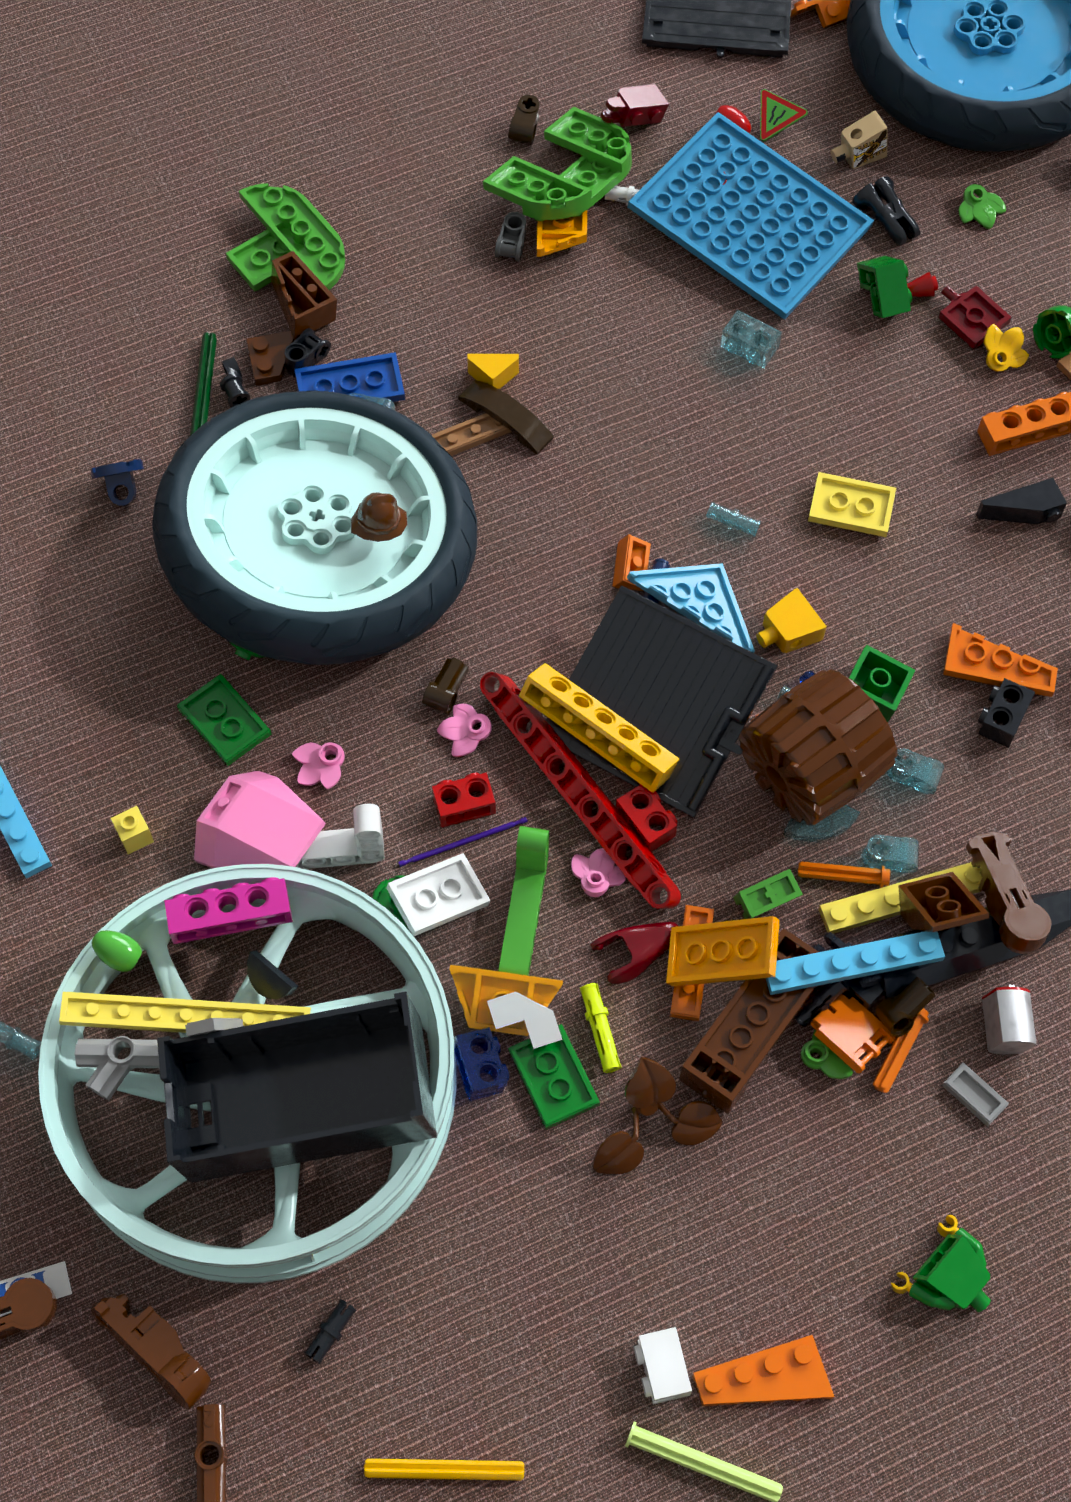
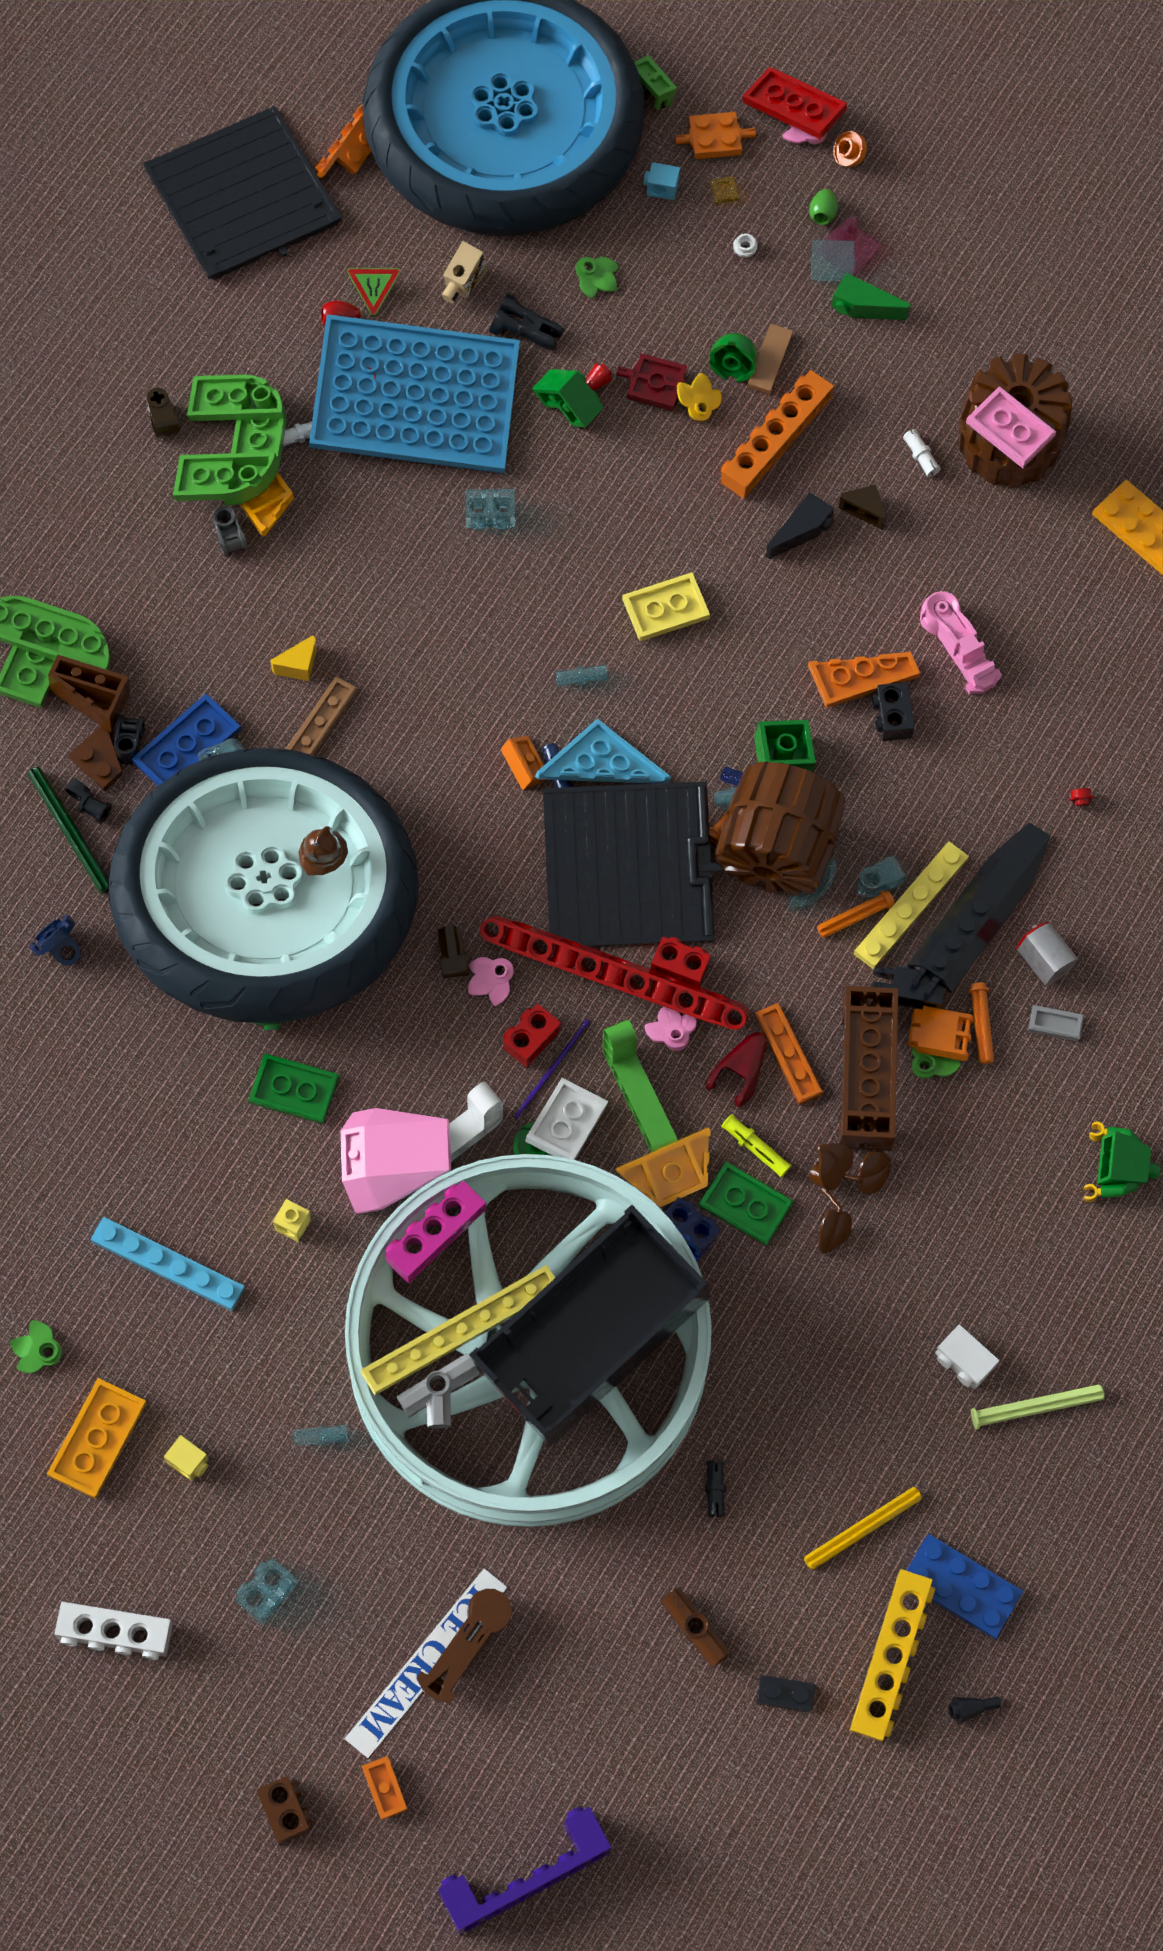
camera: 35 degrees left, 5 degrees up
(116, 950) = (374, 1314): bright green animal -> none
(155, 1347) = (601, 1581): reddish brown piece -> none
(212, 1025) = (498, 1321): light grey tile -> none
(268, 978) = (498, 1264): black tile -> none
(316, 766) = (397, 1081): bright pink plate -> none
(508, 412) = (335, 690): dark brown slope -> none
(538, 1018) = (689, 1169): white tile -> none
(598, 727) = (600, 914): yellow brick -> none
(636, 106) = (251, 347): dark red hinge -> none
(723, 951) = (813, 1031): light orange plate -> none
(768, 894) = (812, 966): bright green hinge -> none
(775, 1374) = (1045, 1313): orange wing -> none
(791, 624) = (686, 737): yellow torso -> none
(820, 1001) = (905, 1020): black pin -> none
(856, 961) = (914, 979): medium azure plate -> none
(899, 1012) = (966, 996): dark brown piece -> none
(918, 771) = (861, 799): clear light blue piece -> none
(939, 903) = (946, 896): reddish brown slope -> none
(1021, 921) = (1013, 872): piece -> none

